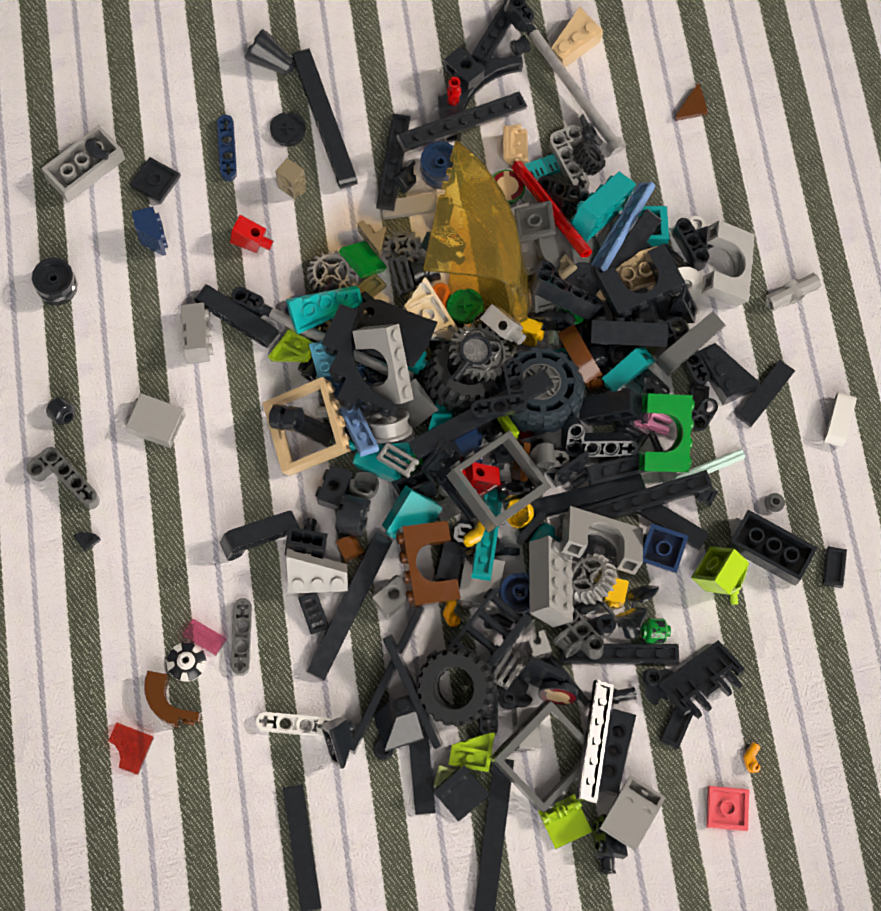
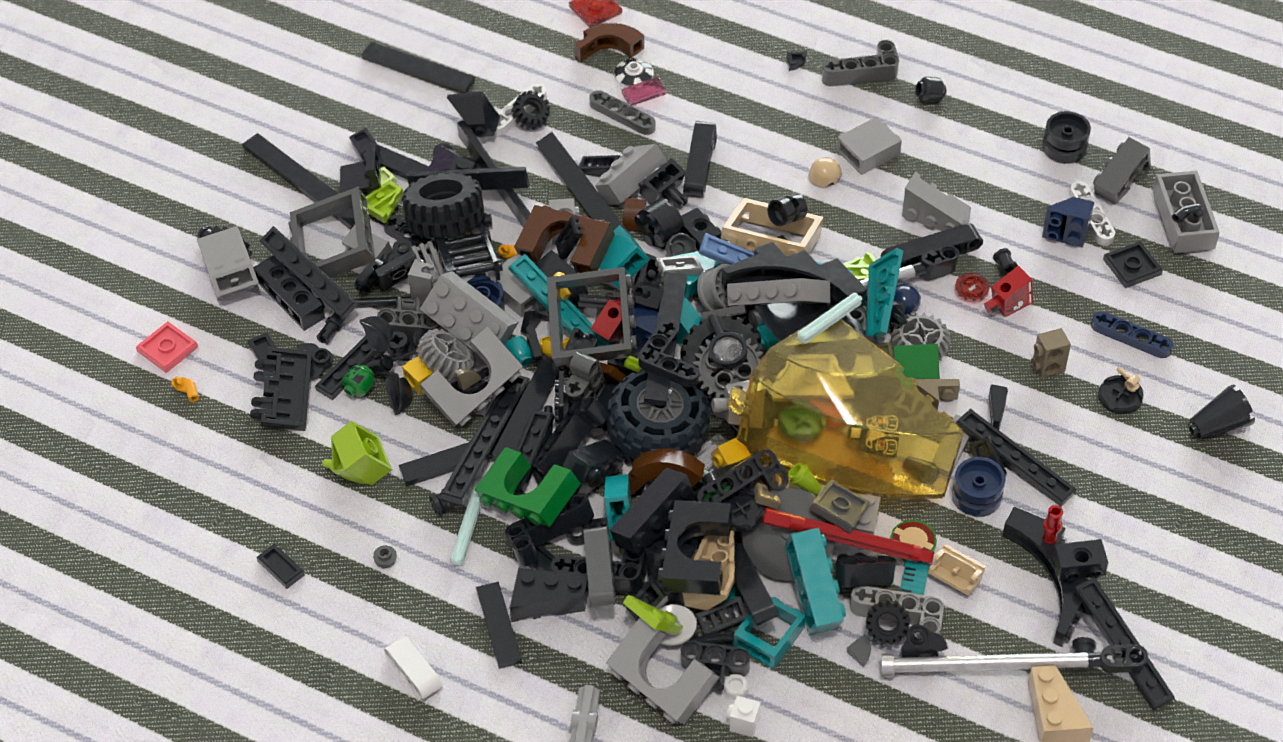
camera: 130 degrees right, 20 degrees down
(67, 225) = (1122, 169): none -> dark grey wedge
(117, 228) = (1095, 228): none -> white beam
(204, 439) = (824, 172): none -> tan hair
(215, 260) = (1004, 260): none -> black bush
(246, 268) = (966, 281): none -> clear red gear
(277, 120) = (1132, 381): none -> tan hand
(293, 695) = (535, 101): none -> black tyre
(324, 118) = (1112, 426): black beam -> none
(360, 192) = (997, 403): none -> black slope
(423, 817) = (360, 140): none -> black tile
(425, 560) = (568, 237): none -> black tile
(436, 259) = (829, 318): none -> light aqua axle
(461, 121) = (1015, 530): black tile -> none
(532, 254) = (803, 478): none -> lime cone
(565, 821) = (264, 223): lime hinge -> none
(599, 547) = (466, 378): none -> dark tan tile
(612, 168) = (860, 650): none -> dark grey tile
(623, 225) = (778, 589): medium blue tile -> none
(663, 547) = (424, 426): dark blue brick -> none
(702, 283) = (653, 616): none -> lime wing
(717, 201) = (744, 716): none -> white brick
(772, 547) = (344, 514): black brick -> none

